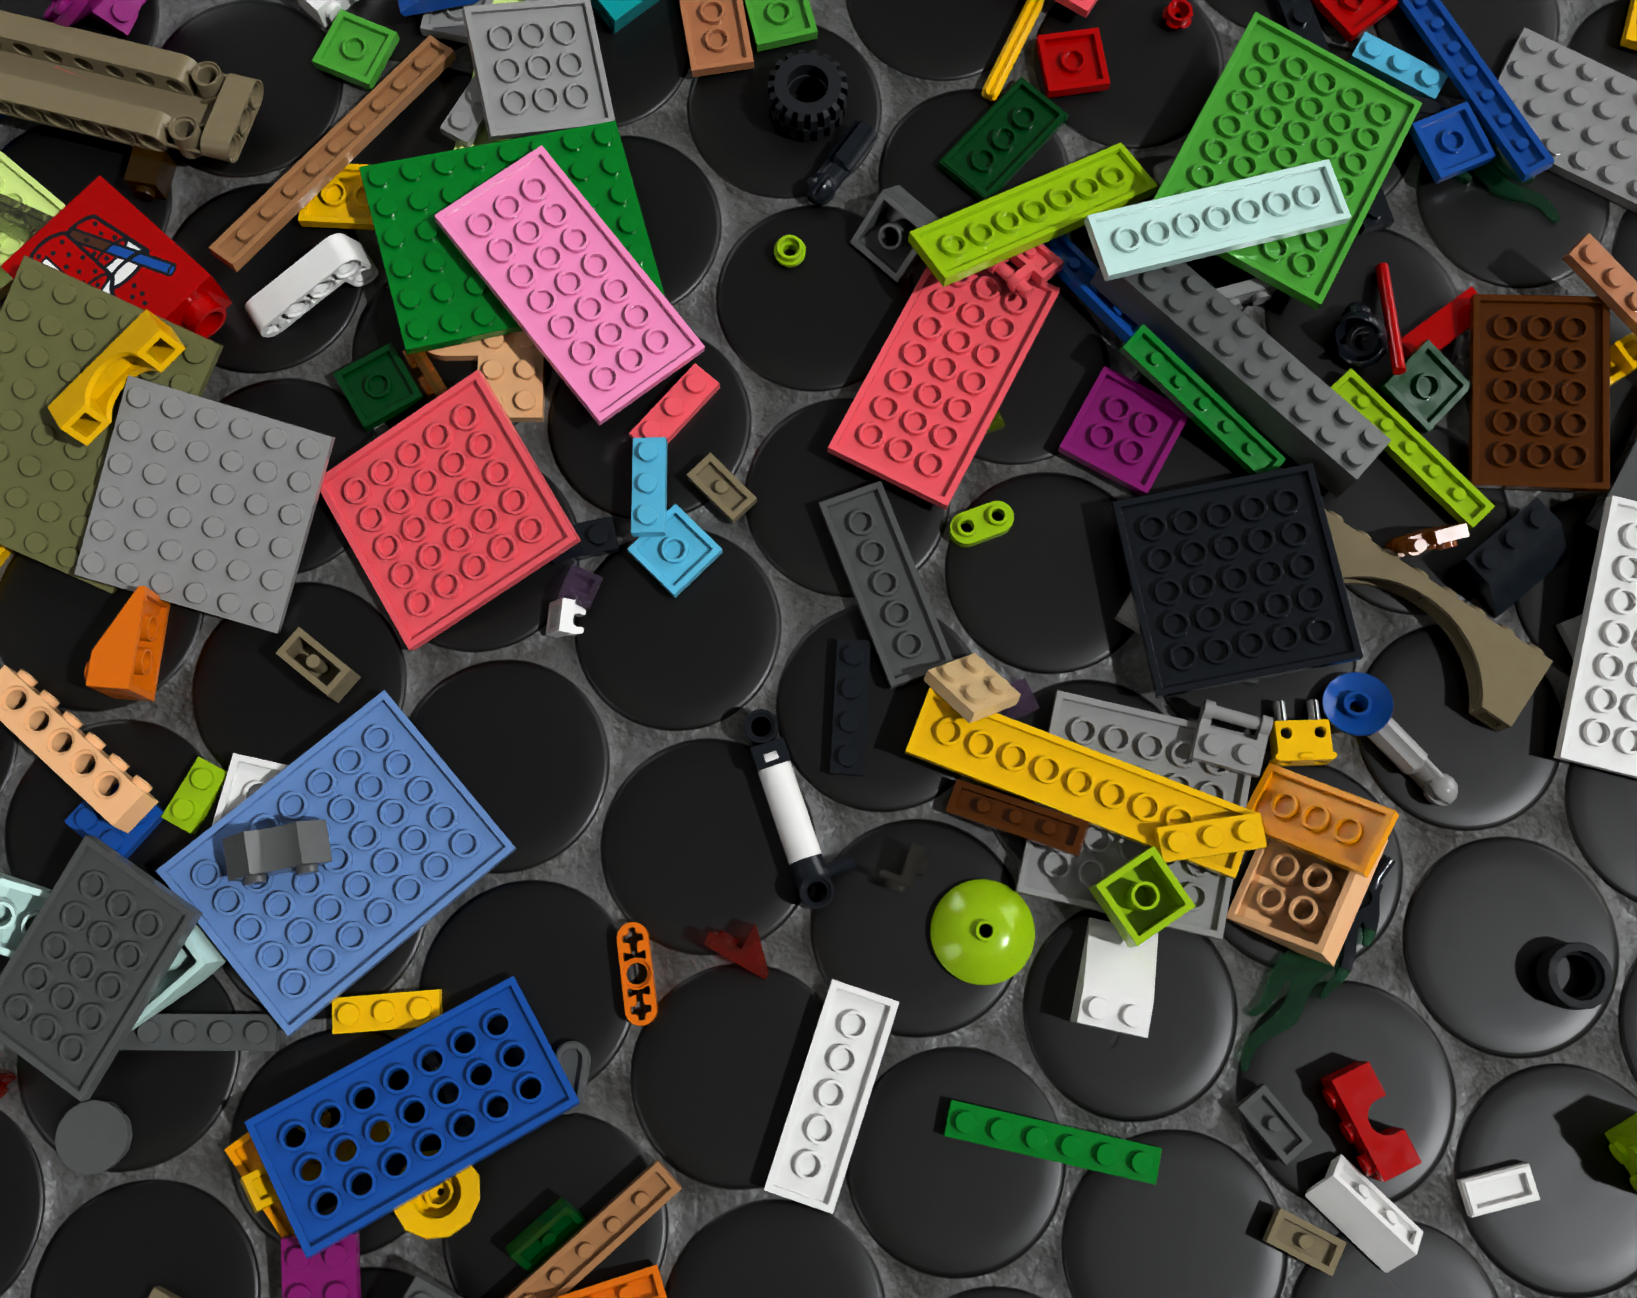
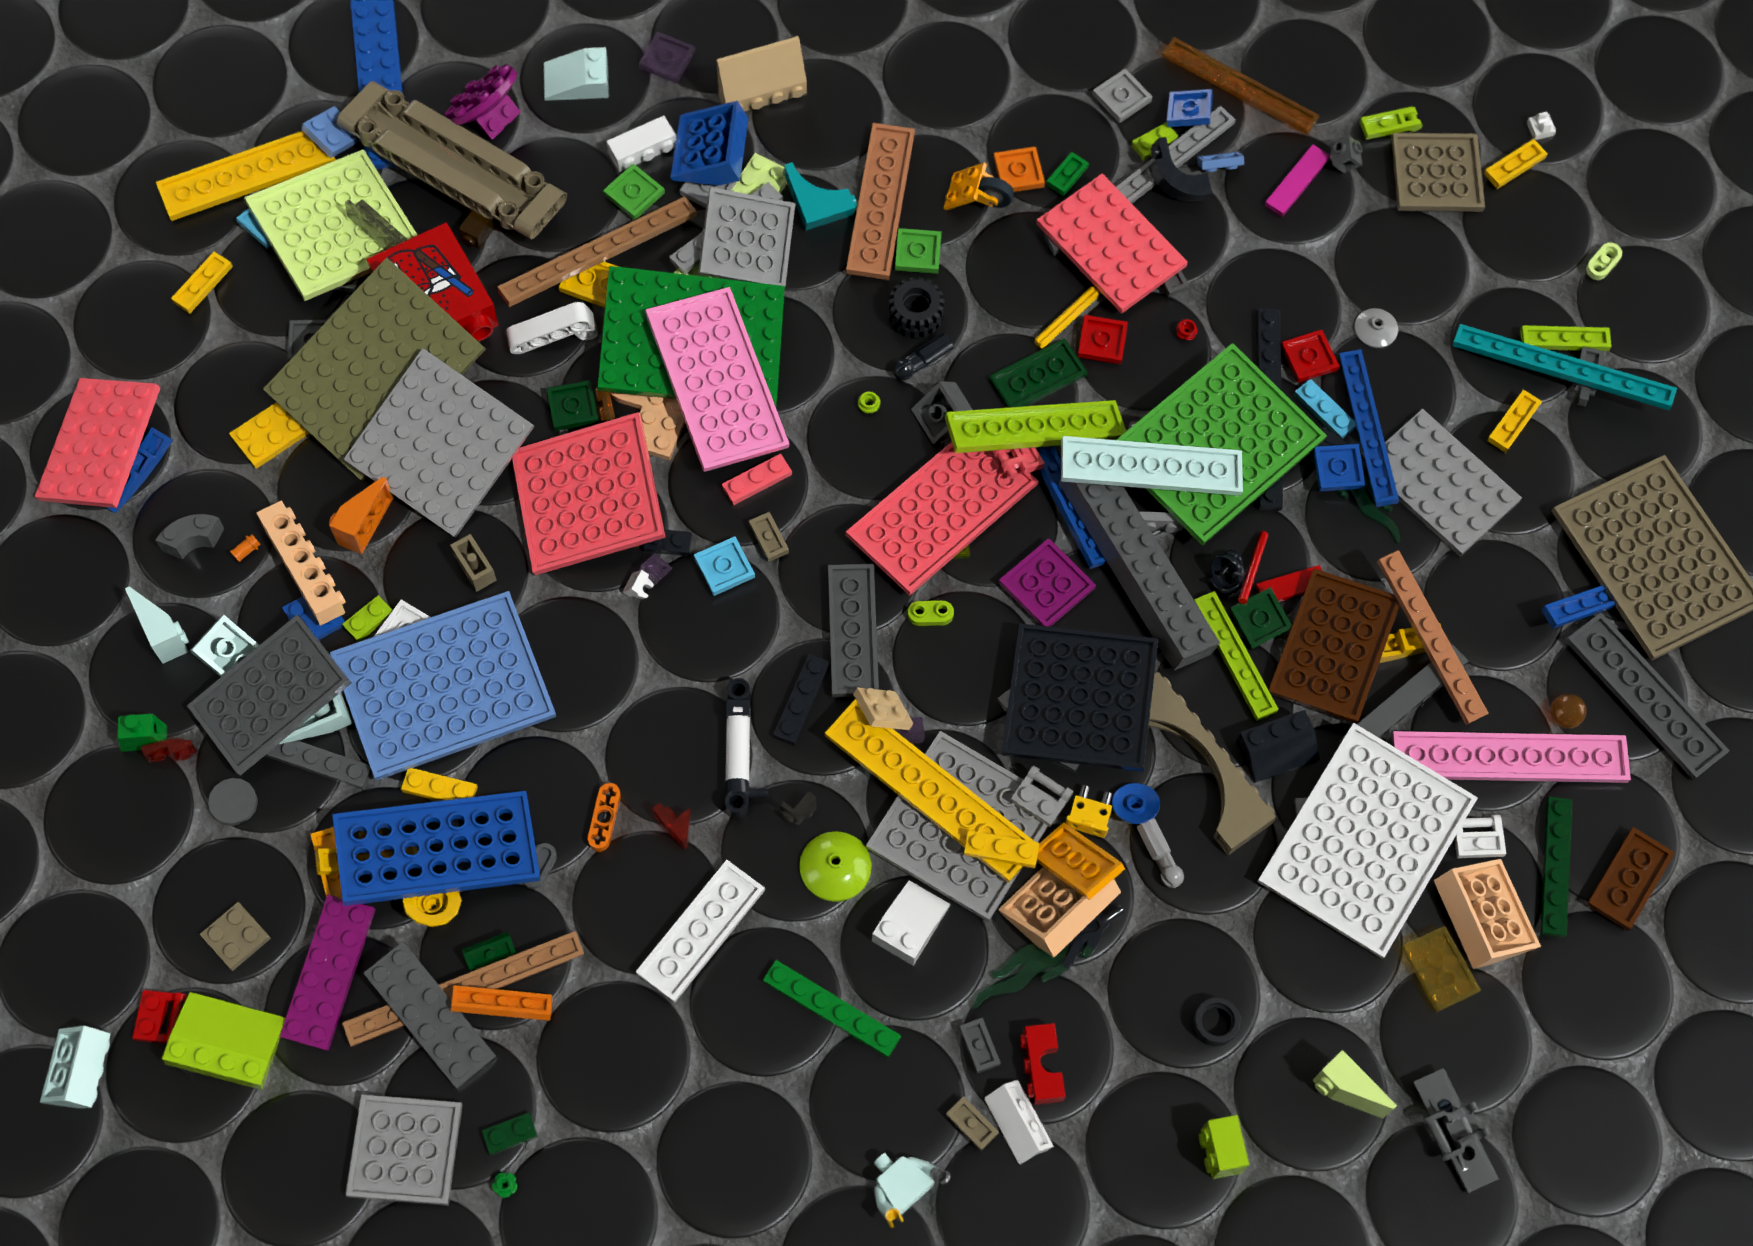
camera: 20 degrees right, 10 degrees down
(88, 401) = (391, 357): yellow arch -> none
(276, 851) = (409, 663): dark grey brick -> none
(649, 487) = (722, 520): medium azure plate -> none
(1018, 817) = (883, 799): reddish brown plate -> none
(1141, 897) = (942, 870): lime brick -> none
(1200, 402) = (1101, 579): green plate -> none
(1427, 539) = (1225, 713): dark orange plate -> none
(1498, 1189) = (1114, 1138): white tile -> none

